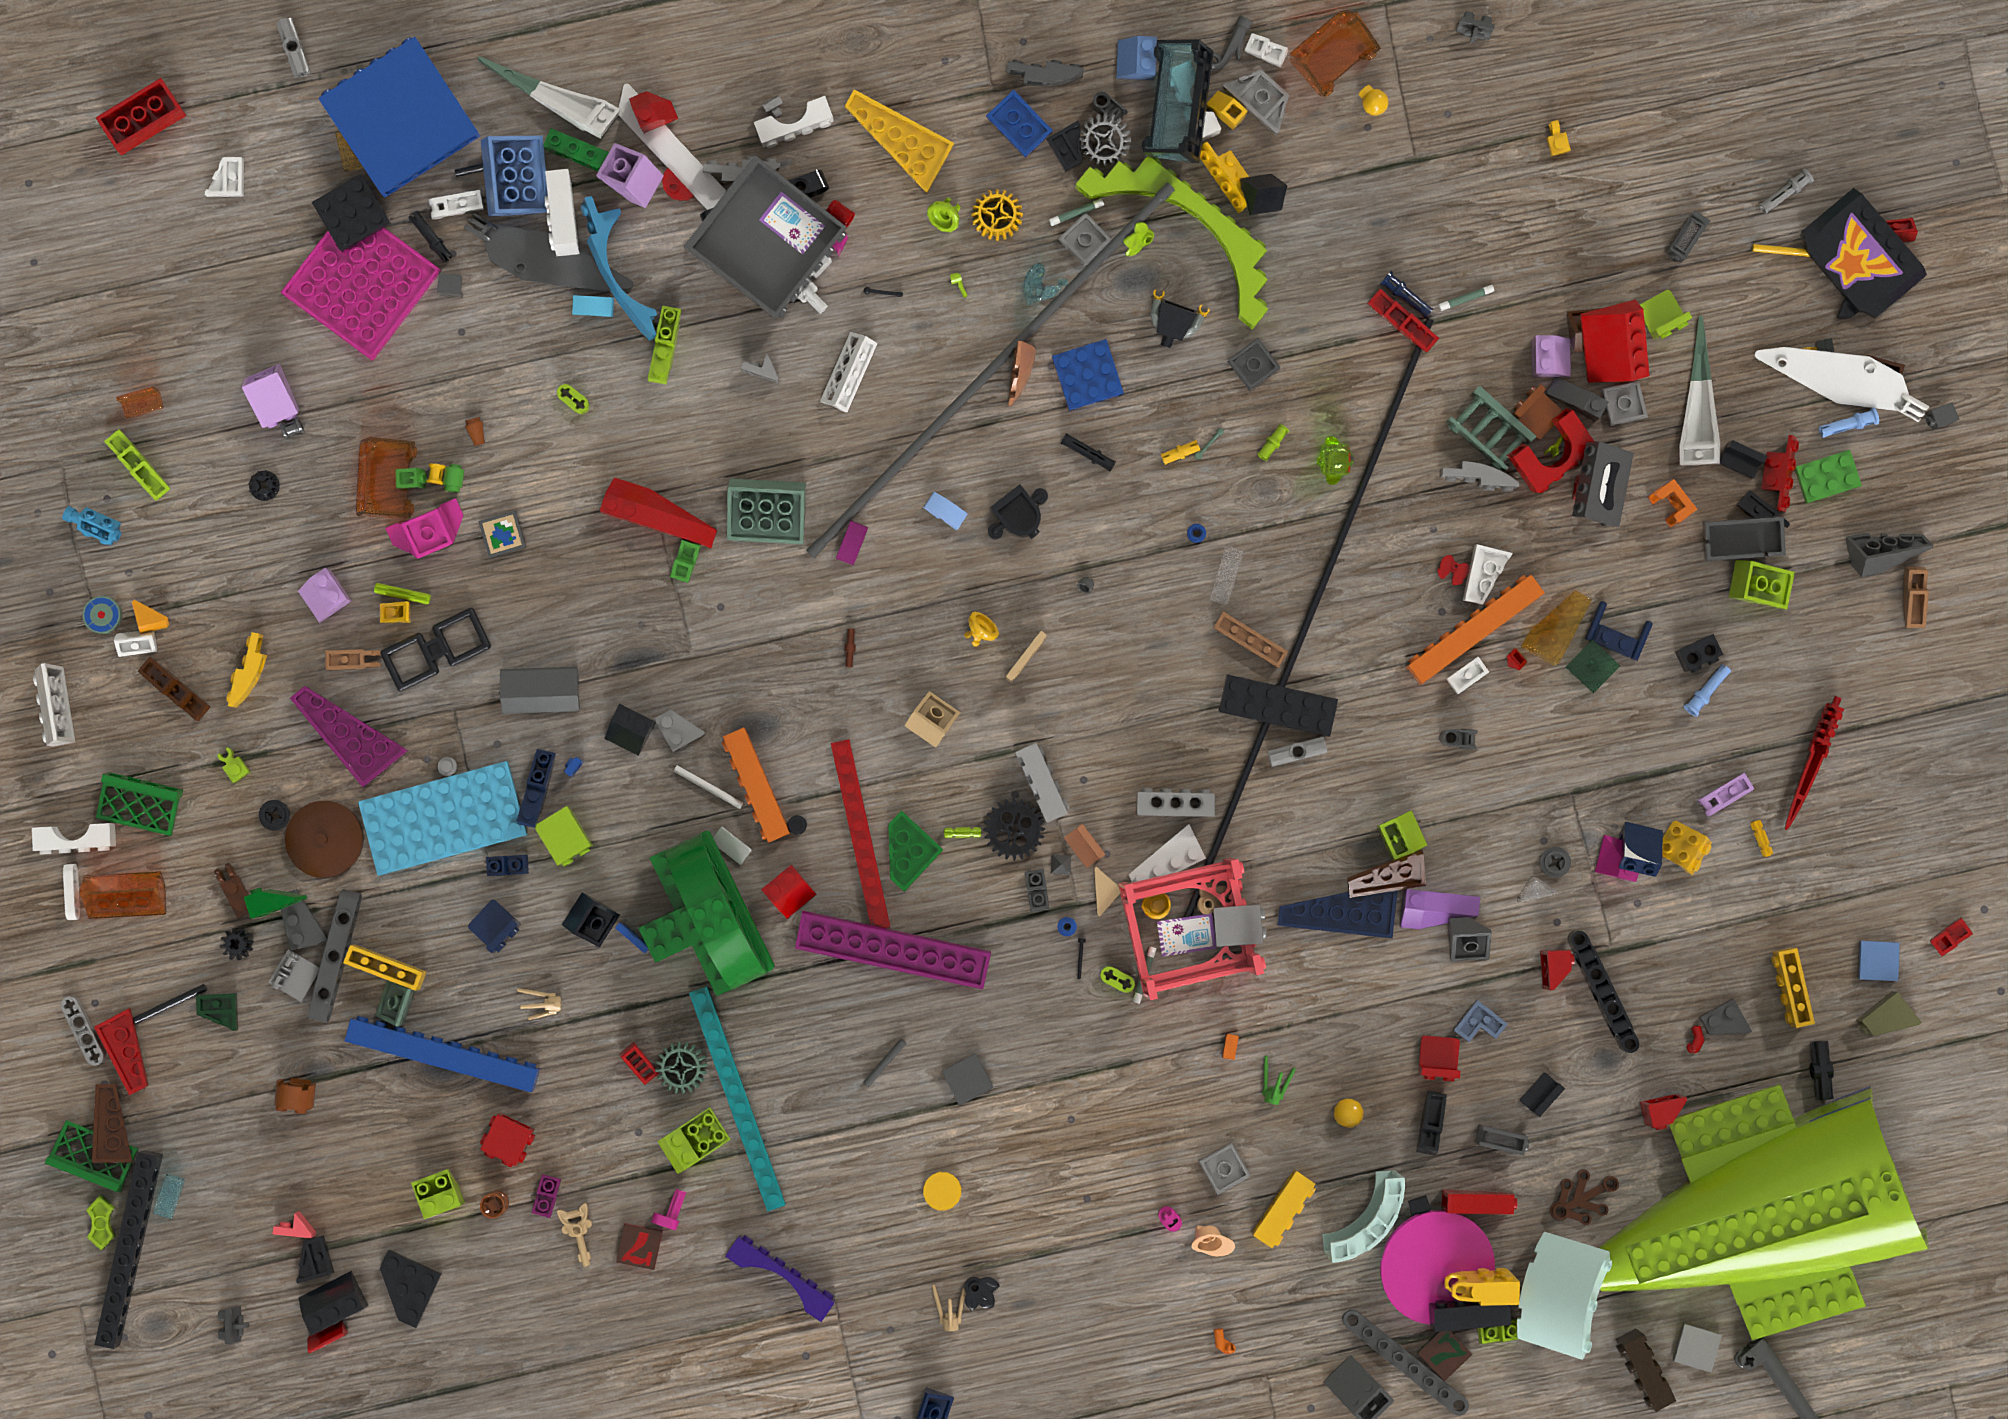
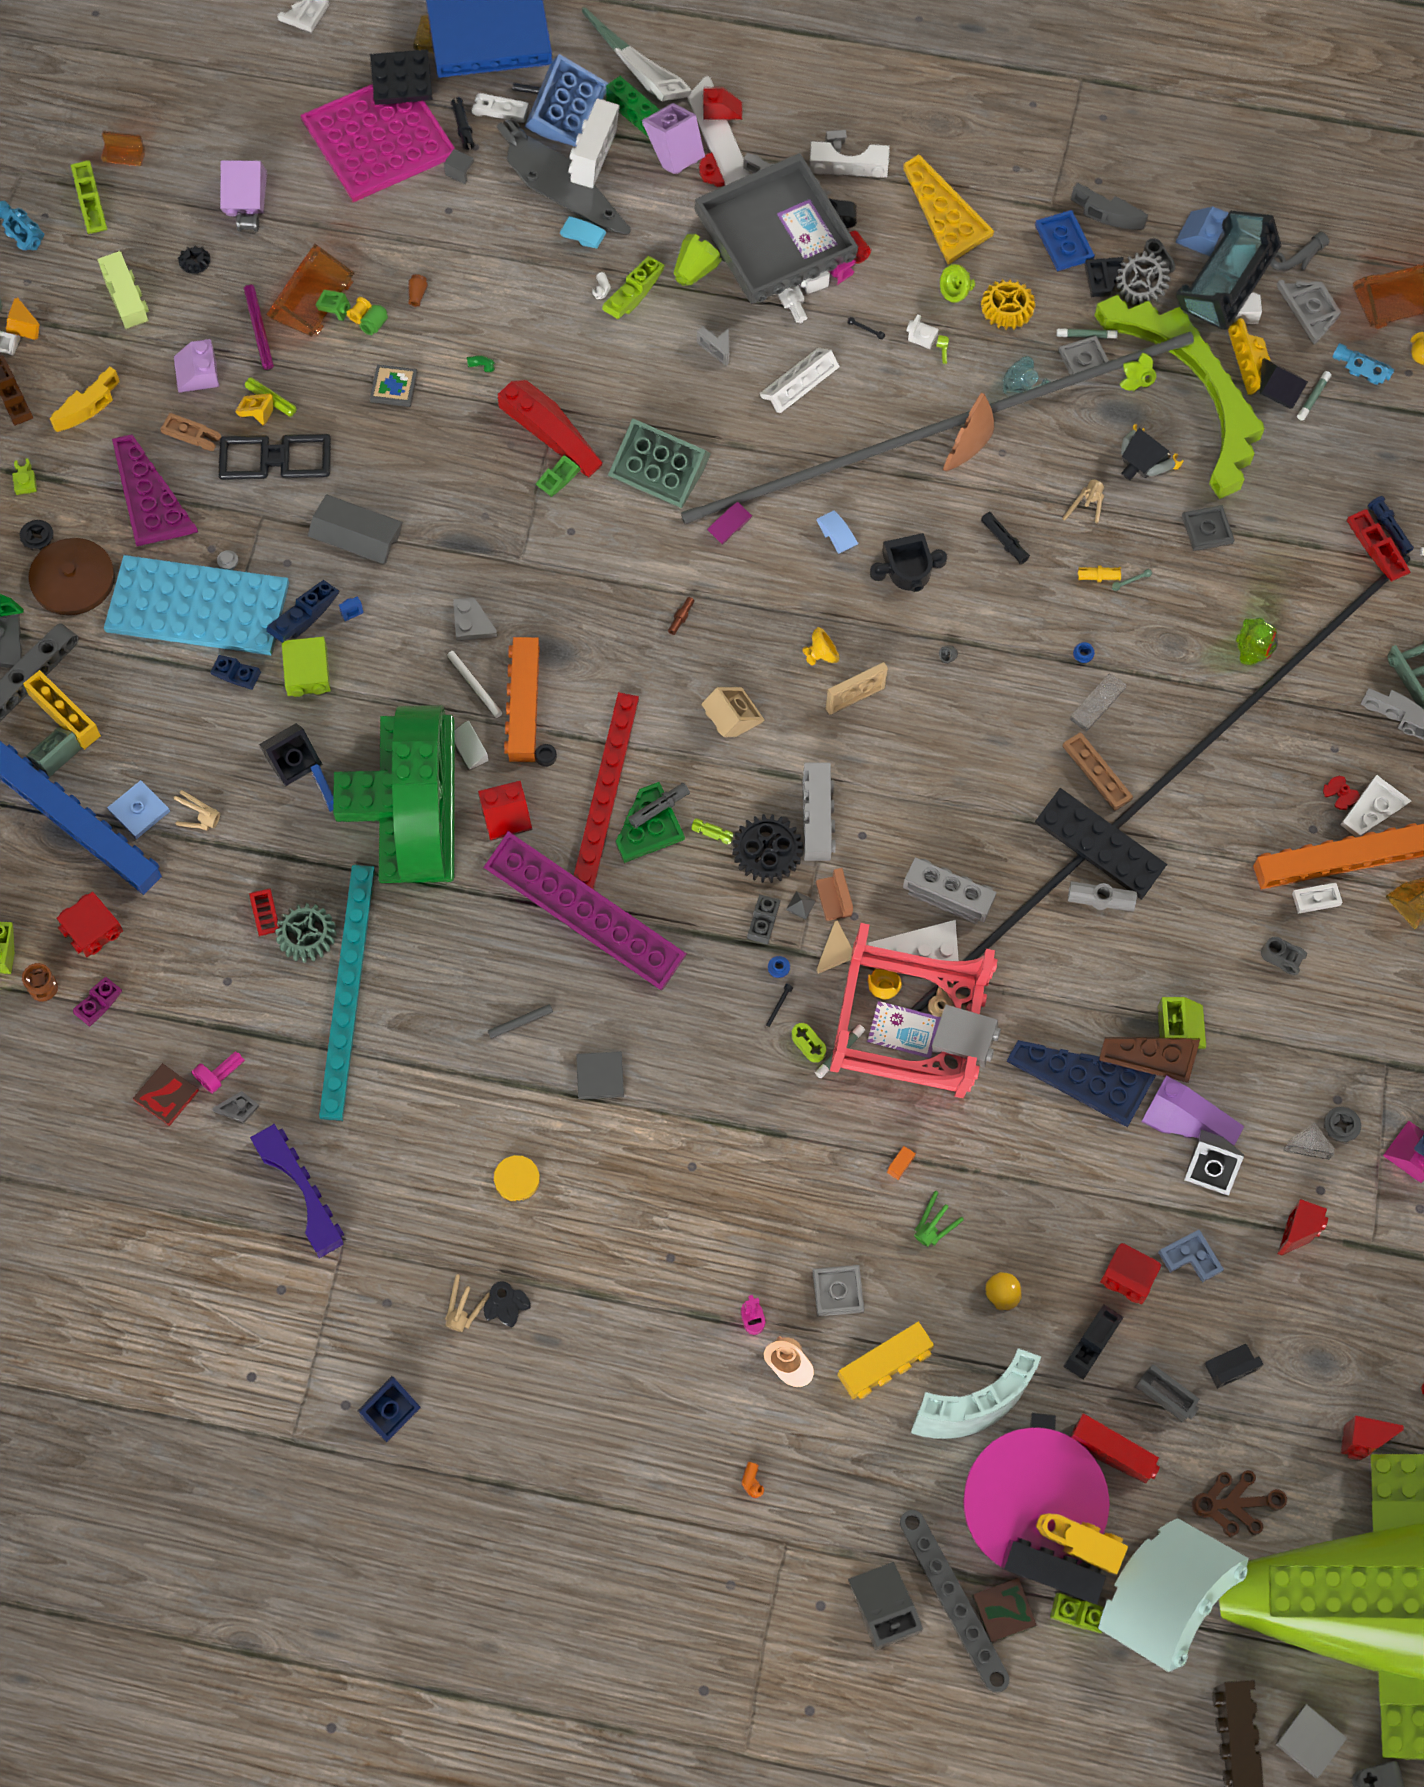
camera: 30 degrees right, 20 degrees down
(222, 550) = (122, 290): none -> yellowish green wedge
(355, 528) = (258, 327): none -> magenta axle
(427, 531) = (325, 351): dark pink piece -> none
(492, 1021) = (138, 809): none -> light blue plate
(494, 926) = (191, 720): dark blue bracket -> none
(569, 476) = (481, 361): none -> green arm
(576, 396) = (520, 302): lime beam -> none
(577, 1229) = (111, 1049): tan piece -> none
(599, 226) = (623, 171): dark azure slope -> none
(629, 729) = (424, 597): black slope -> none
(637, 353) = (603, 288): none -> white arm
(693, 1140) = (279, 1010): lime slope -> none
(700, 1232) = (237, 1107): none -> flat silver piece
(705, 295) = (695, 260): none -> lime cone
(911, 835) = (667, 800): none -> dark grey pin
(934, 276) = (921, 333): none -> white bracket
(1087, 375) = (1035, 472): blue plate -> none
(1144, 374) = (1092, 493): none -> tan plant
(1227, 109) = (1276, 303): yellow slope -> none
(1266, 50) = (1331, 271): white slope -> none
(1273, 442) = (1198, 601): lime pin -> none
(1295, 189) = (1314, 395): none -> sand green bar
(1330, 143) = (1367, 368): none -> dark azure brick
(1516, 660) = (1375, 904): red slope -> none
(1603, 991) = (1347, 1282): black beam -> none

